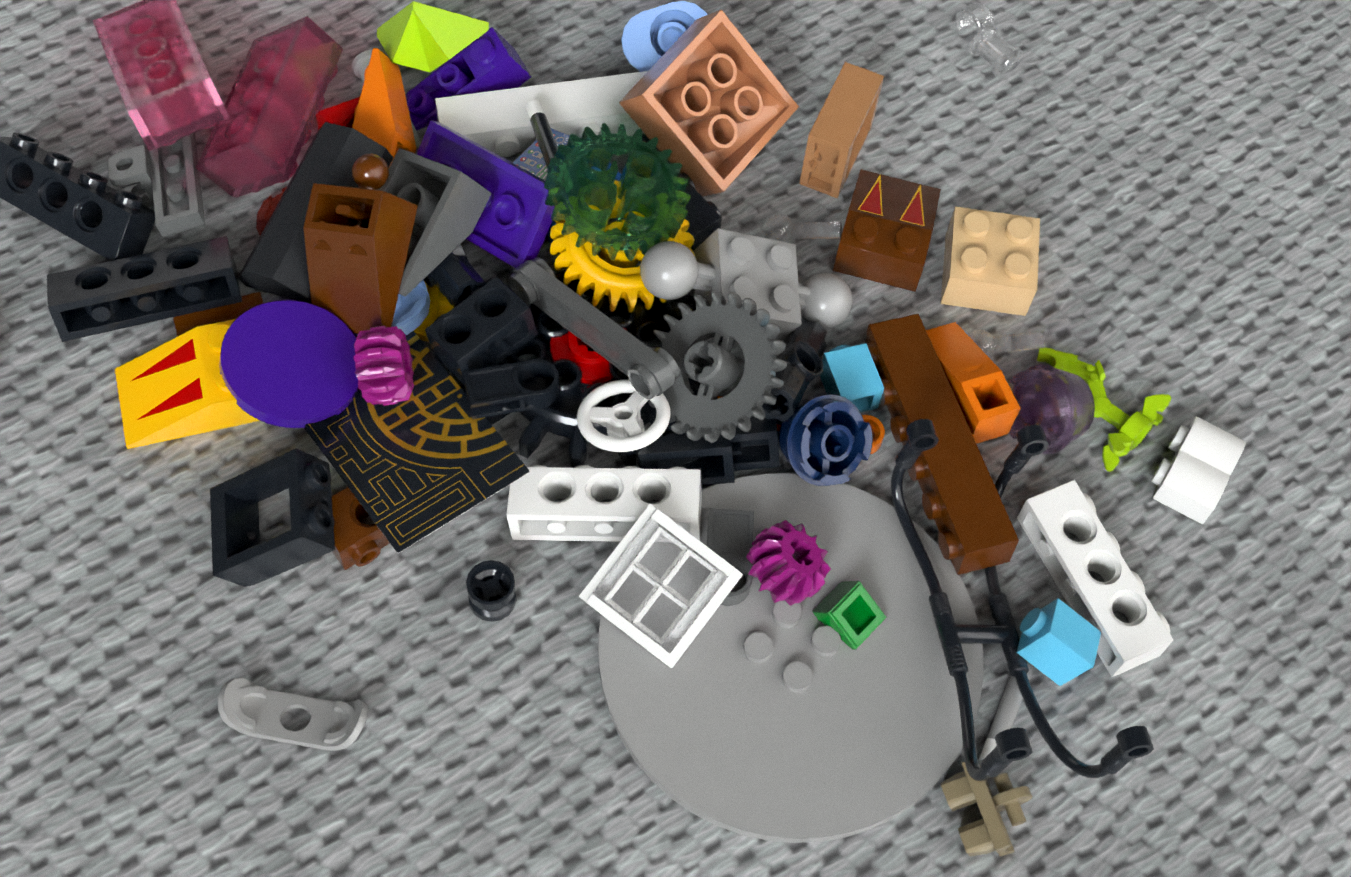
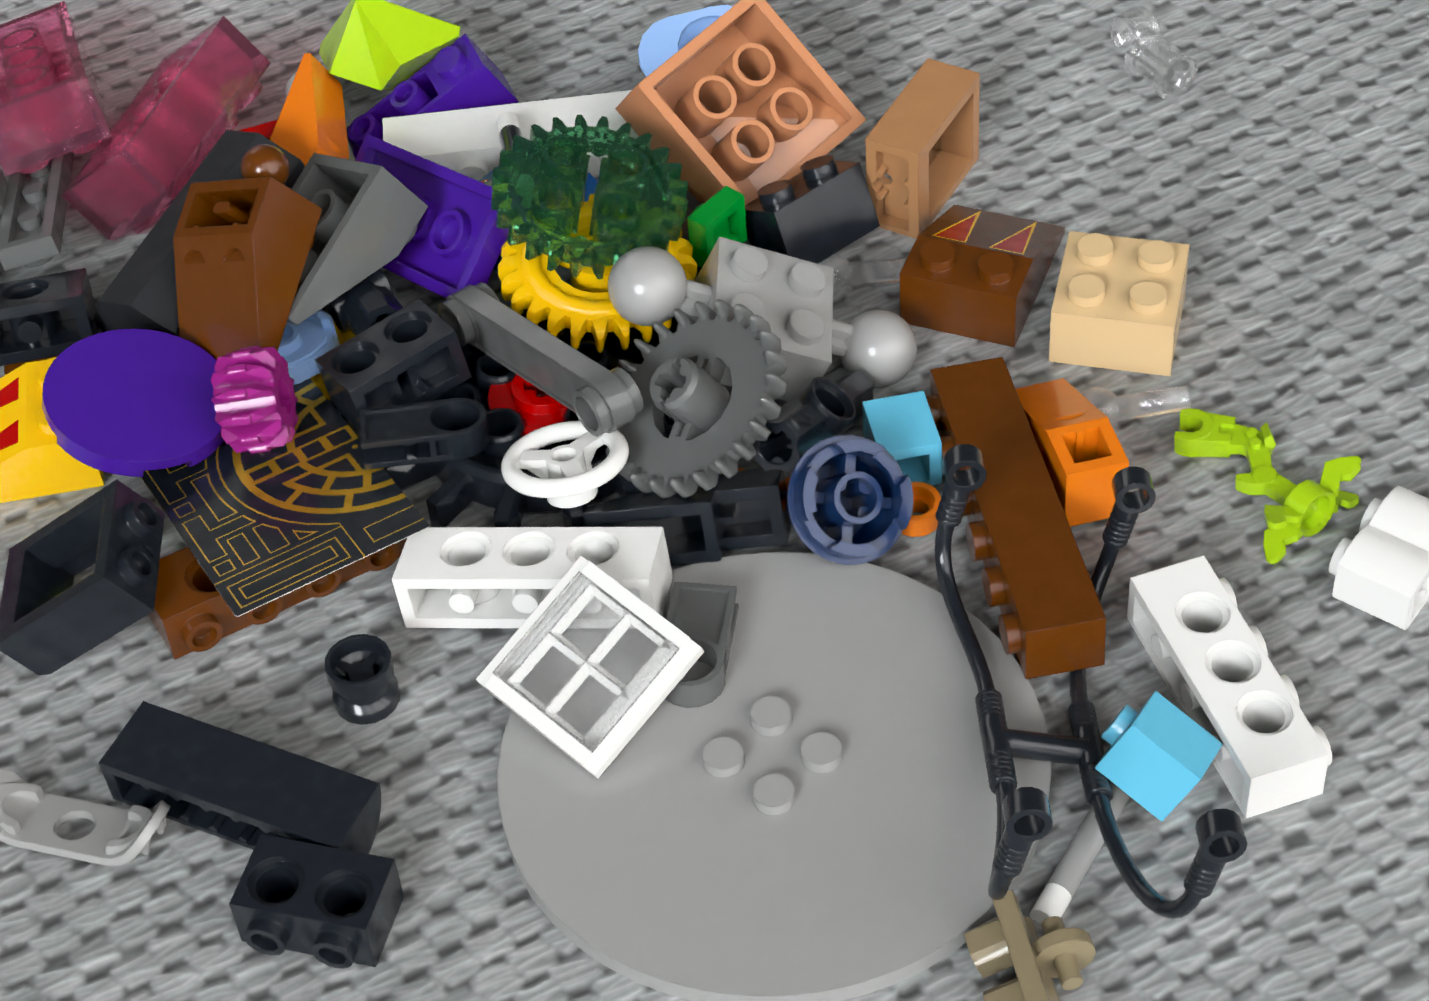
camera: 15 degrees right, 15 degrees down
(418, 688) = (237, 784): none -> black brick
(491, 765) = (317, 891): none -> black brick
(705, 207) = (718, 217): none -> green plate
(764, 188) = (812, 211): none -> black brick
(788, 563) = (772, 643): magenta gear -> none
(850, 612) = (862, 717): green slope -> none
(1056, 402) = (1191, 468): clear purple cone -> none

